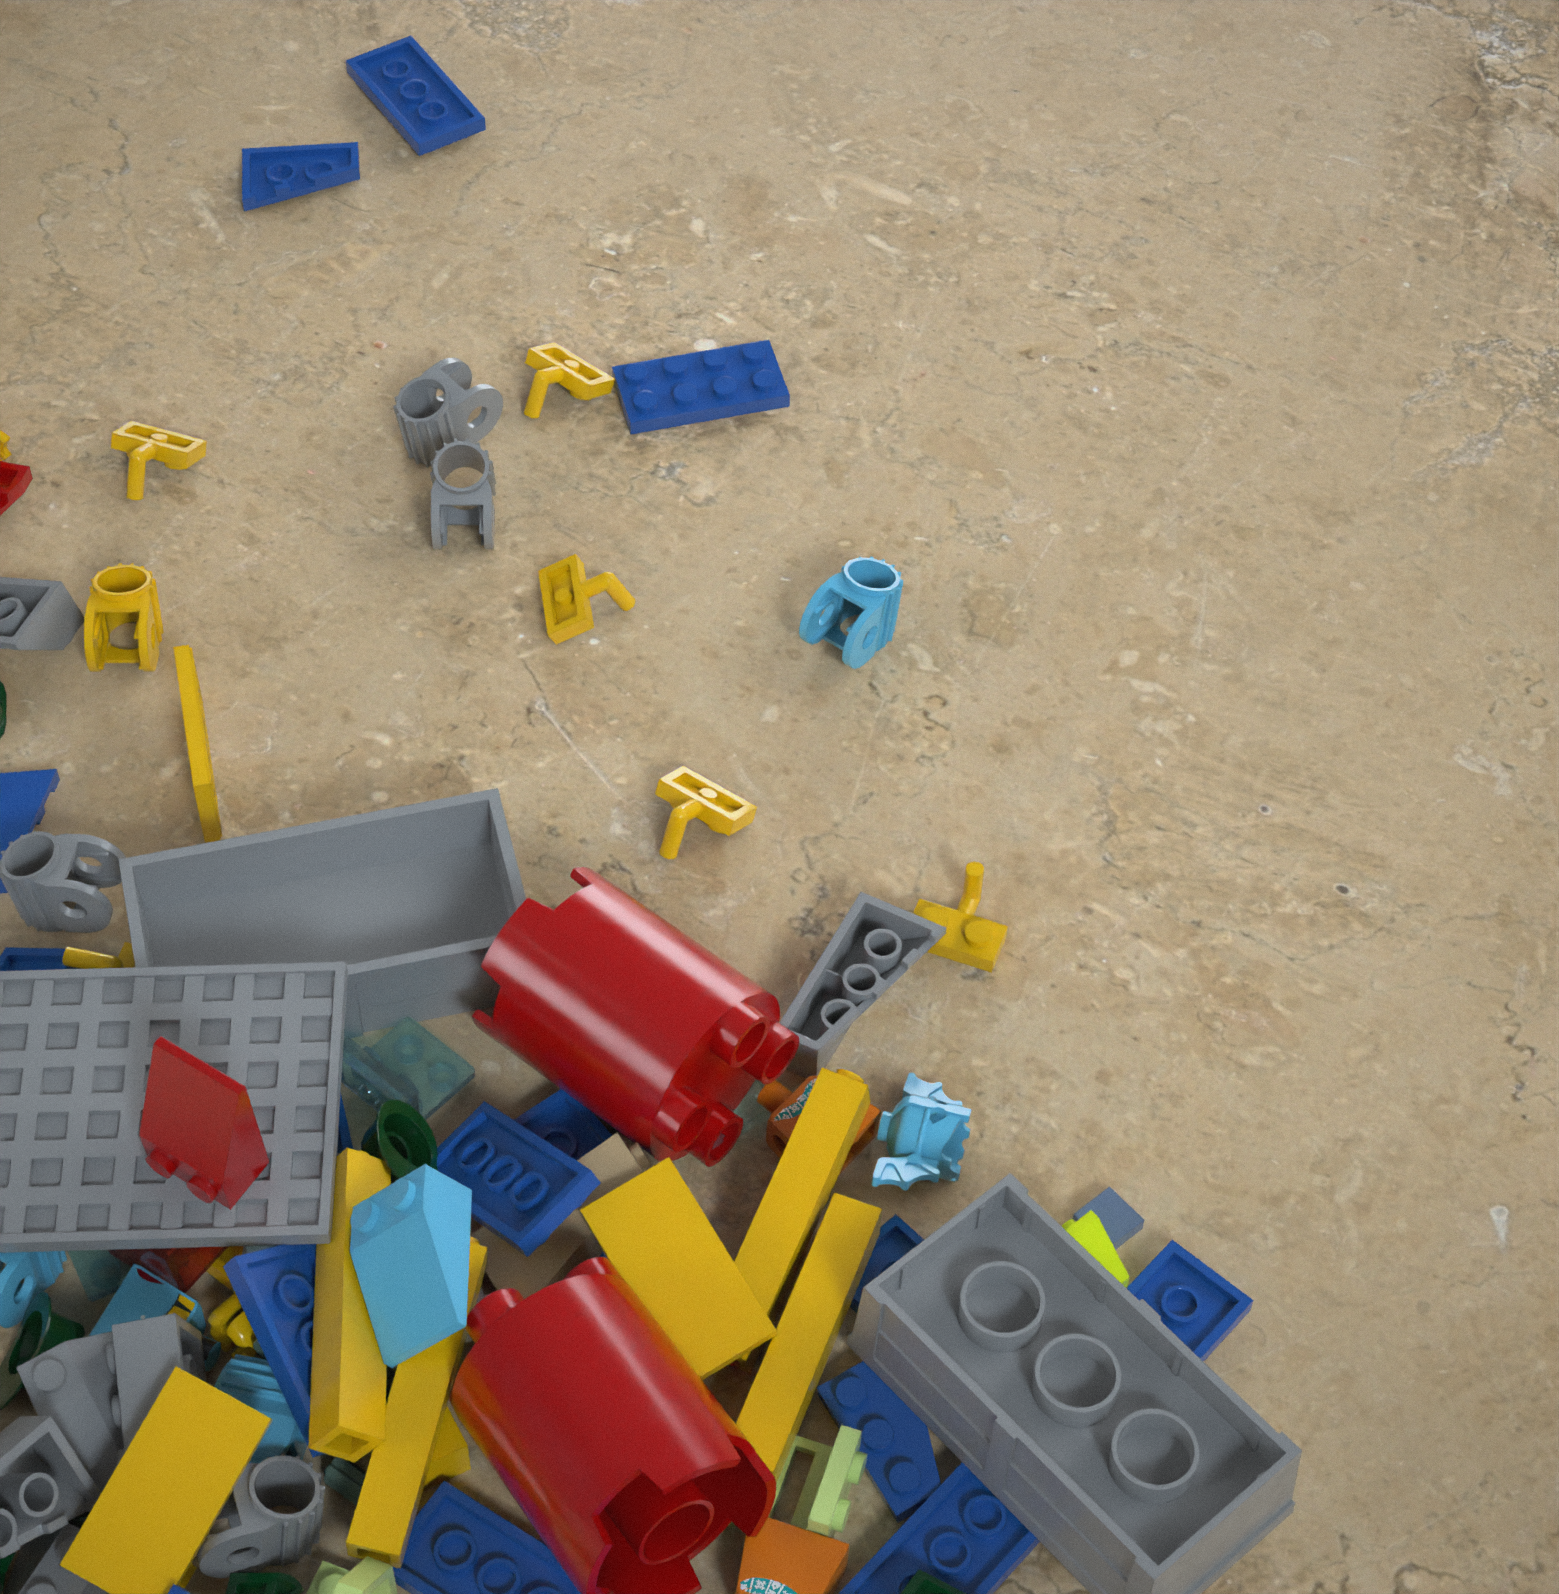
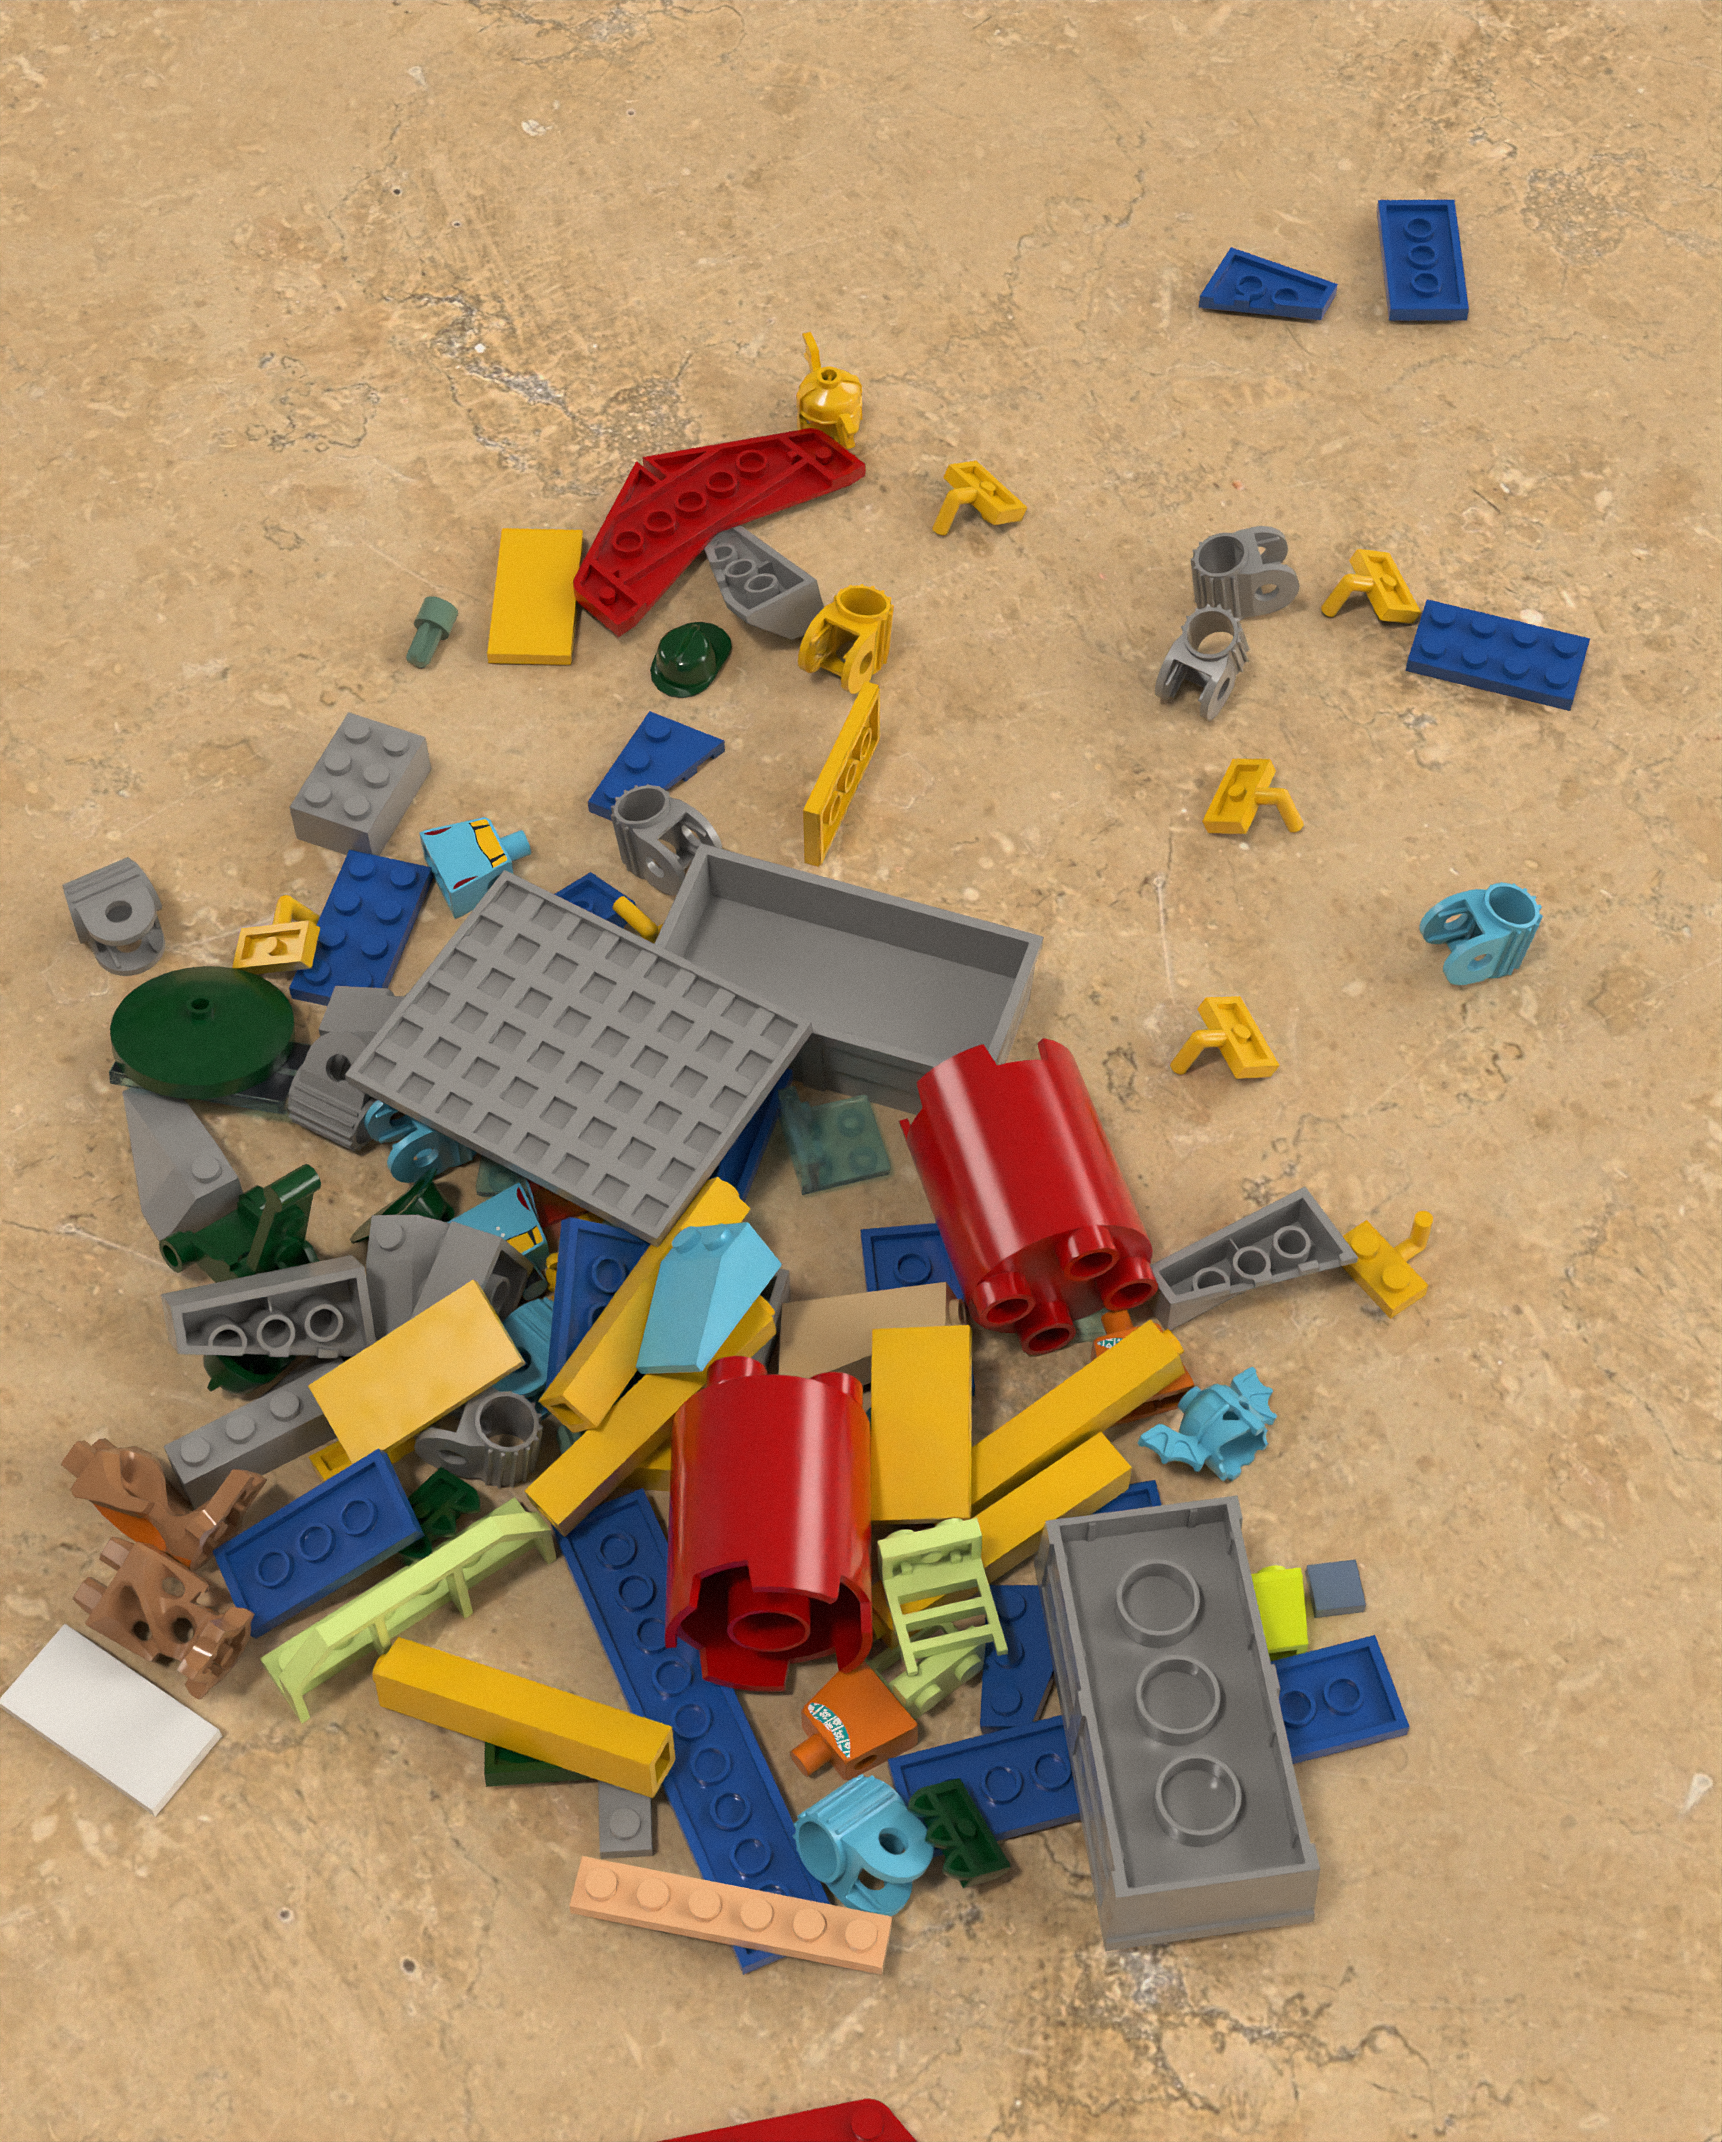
camera: 35 degrees right, 5 degrees up
(200, 1126) = (598, 1101): red slope -> none
(400, 1139) = (778, 1201): dark green piece -> none
(515, 1177) = (838, 1272): blue plate -> none
(779, 1387) = (933, 1565): none -> yellowish green plate

